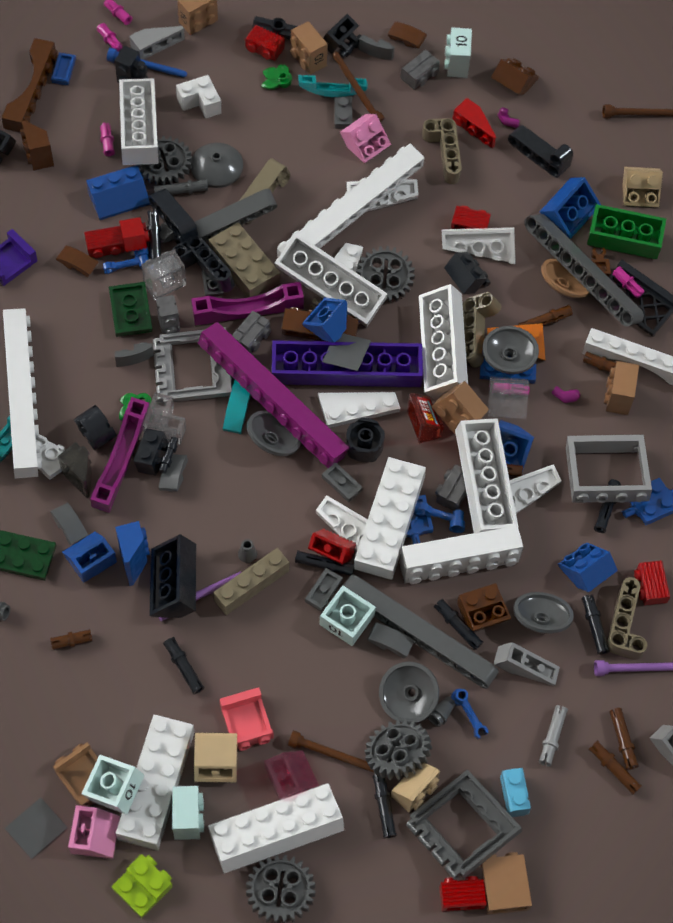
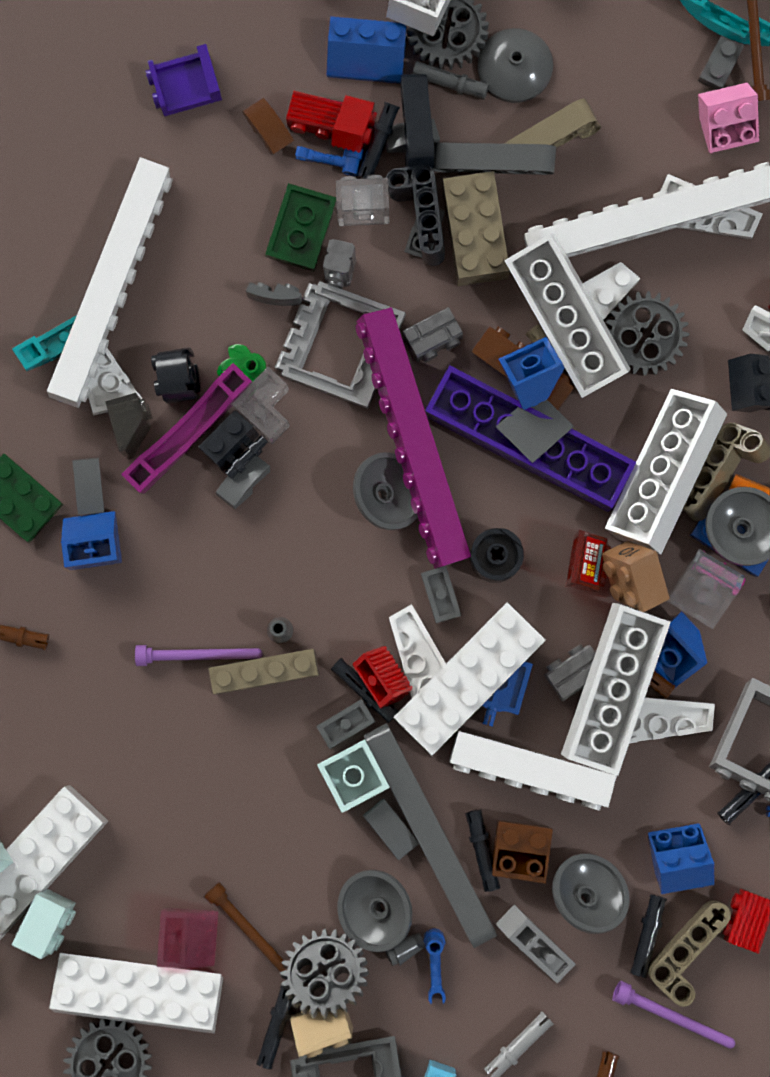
camera: 35 degrees right, 20 degrees up
(133, 549) = (136, 569): blue slope -> none
(173, 578) = (172, 623): black slope -> none
(179, 658) = (134, 735): black pin -> none
(213, 309) = (484, 304): magenta arch -> none
(215, 757) = (109, 875): tan slope -> none
(236, 409) = (362, 431): teal slope -> none
(247, 717) = (172, 841): coral panel -> none
(349, 407) = (506, 497): white wing -> none
(456, 519) = (552, 713): blue brick -> none

